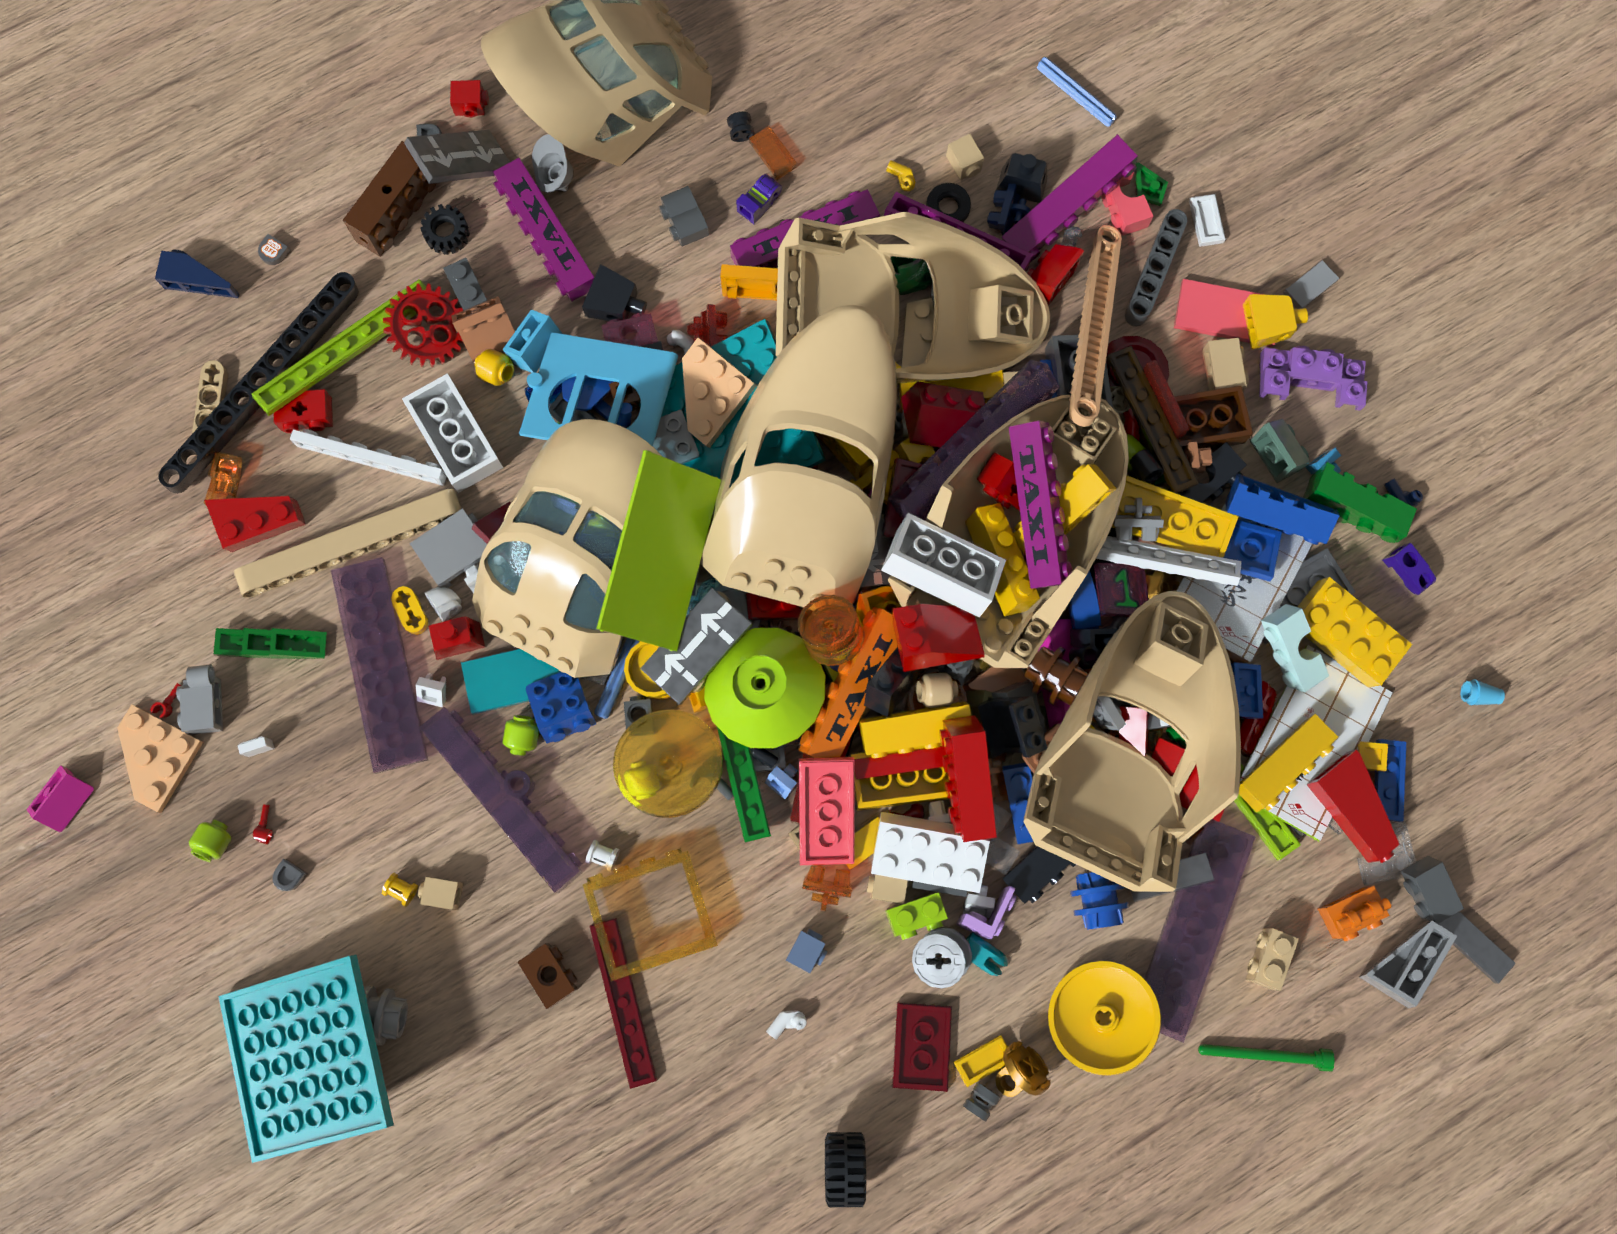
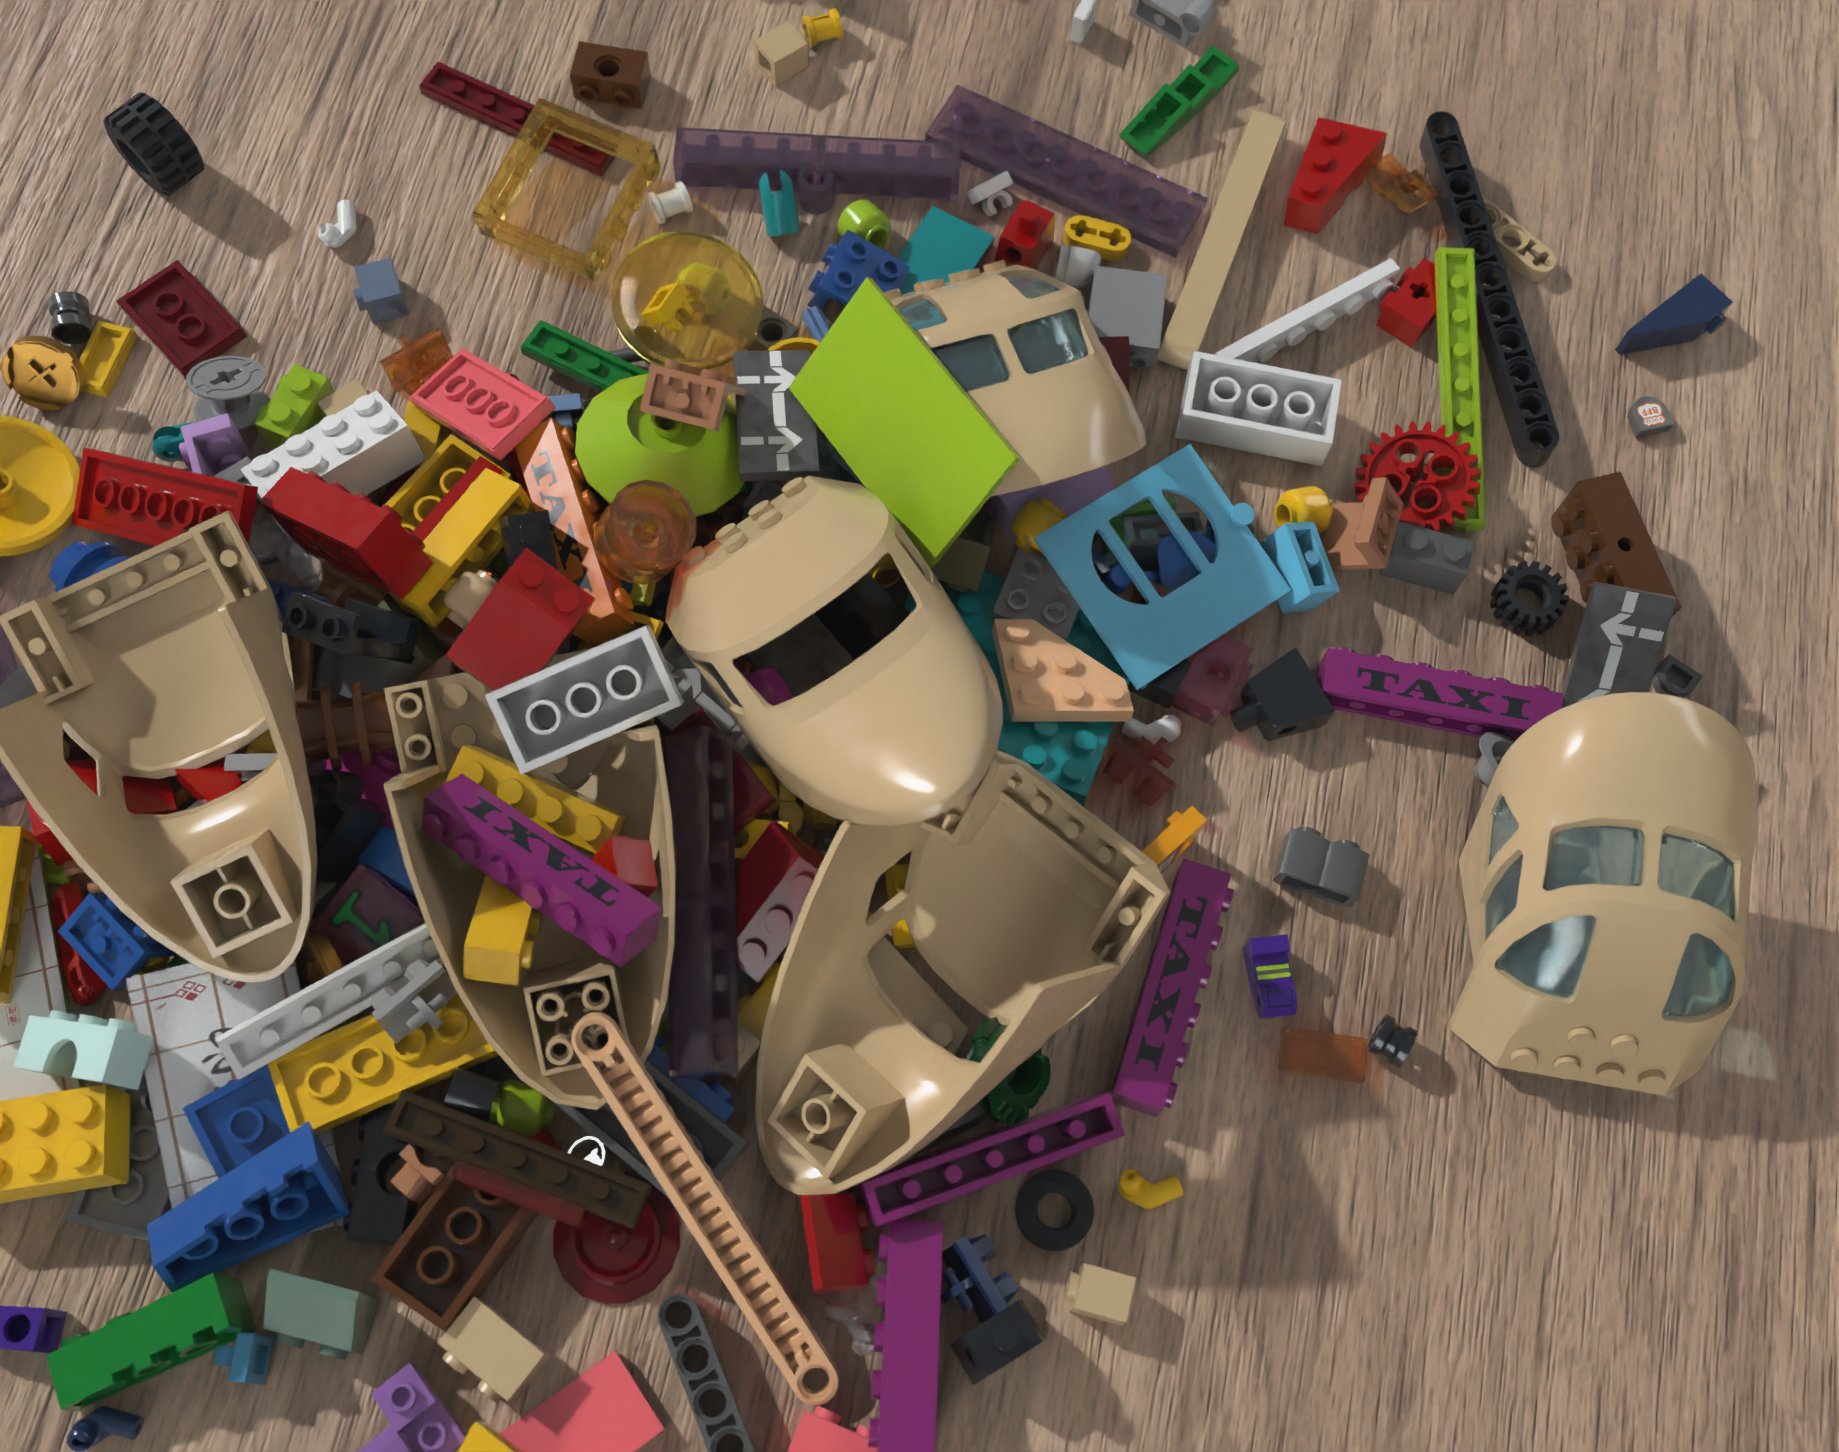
camera: 130 degrees right, 10 degrees down
(553, 788) = (779, 207): none -> teal piece
(687, 759) = (665, 304): none -> yellow tile
(733, 680) = (687, 397): none -> nougat bracket
(1037, 906) = (153, 499): none -> red plate

